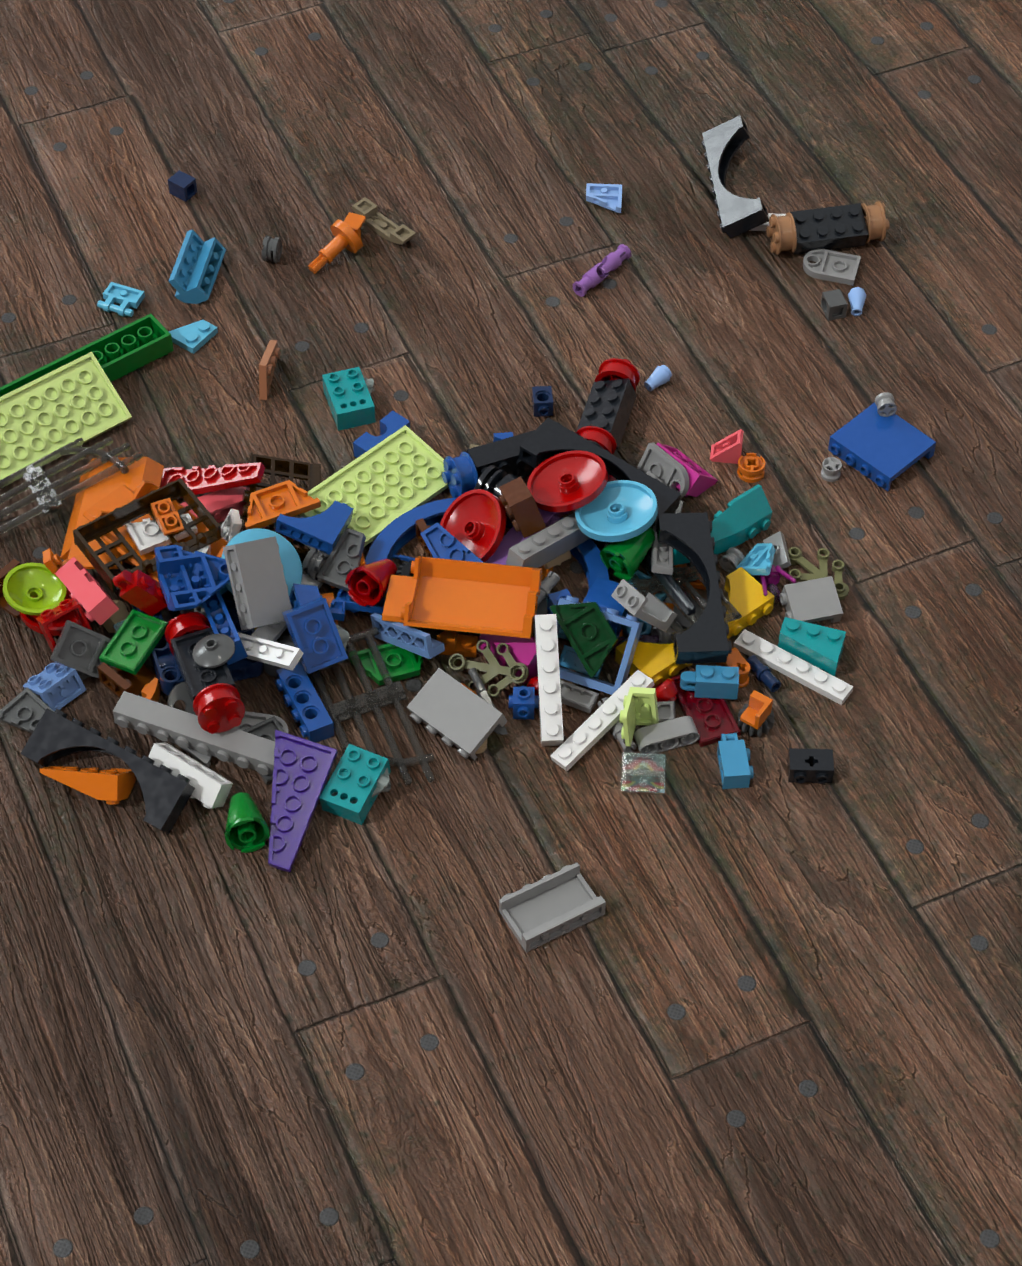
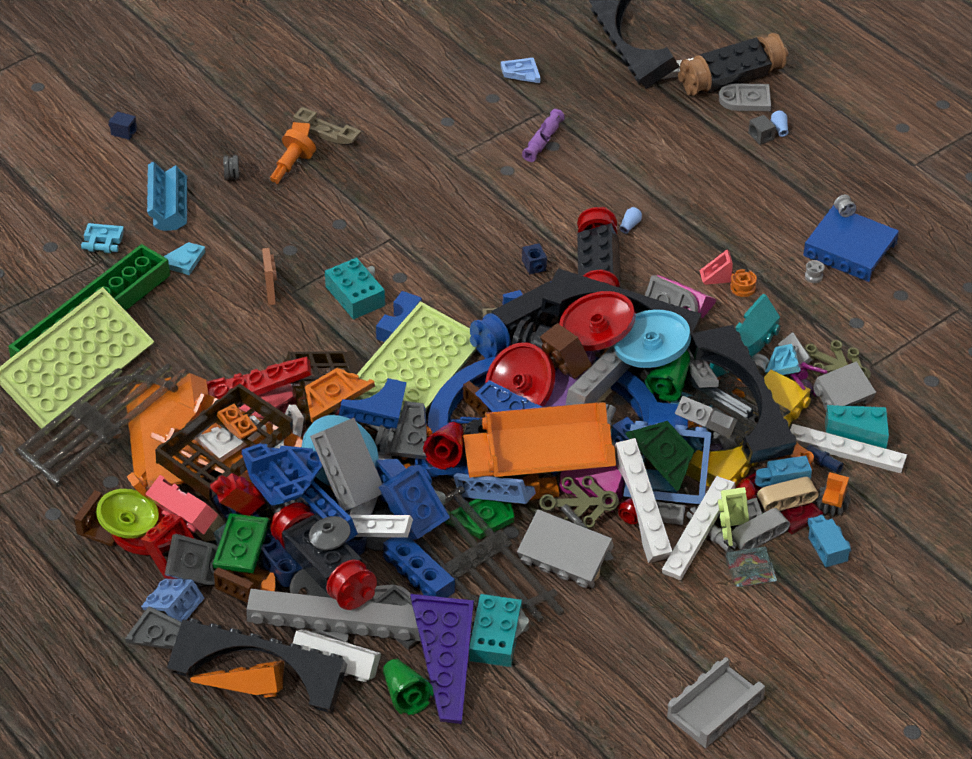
camera: 15 degrees left, 5 degrees down
(523, 702) = (621, 526): blue brick -> none
(708, 704) = (788, 494): none -> tan beam
(810, 765) = (896, 530): black brick -> none

